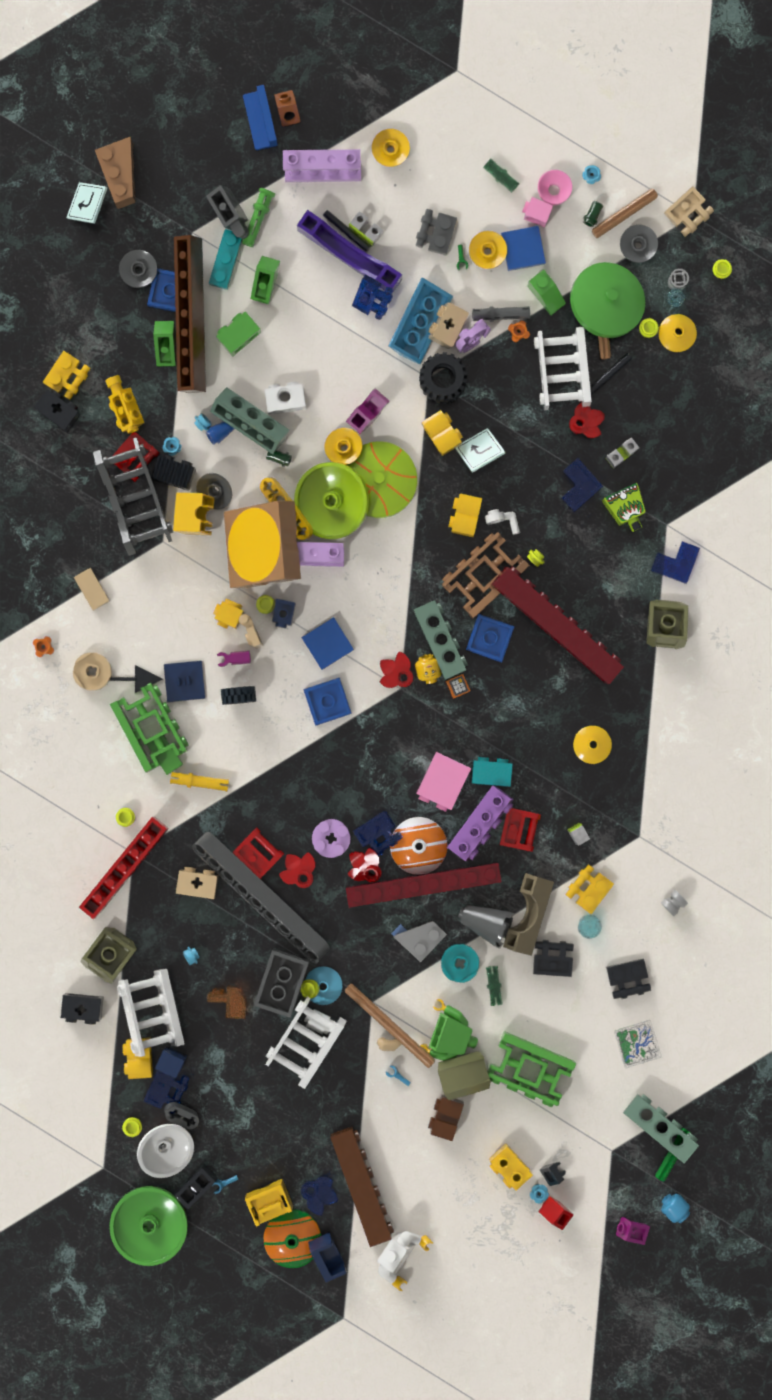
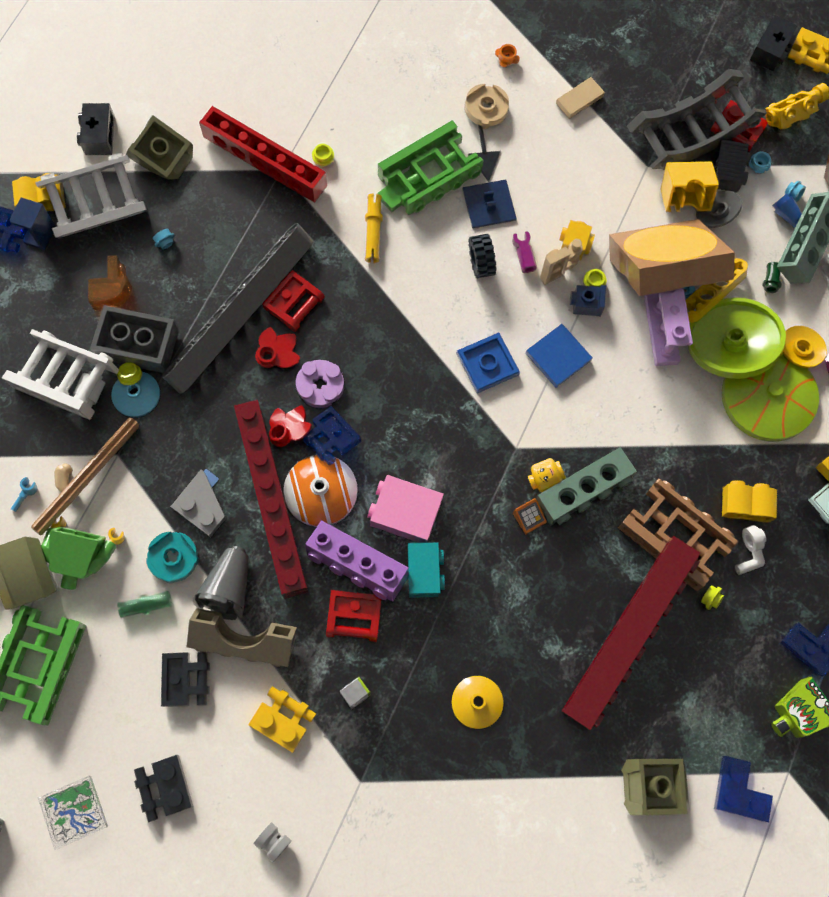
camera: 80 degrees right, 15 degrees down
(186, 886) = (250, 224): tan brick -> none
(393, 671) = (538, 437): red plate -> none
(490, 638) = (597, 551): blue tile -> none
(588, 920) = (239, 729): clear light blue plate -> none

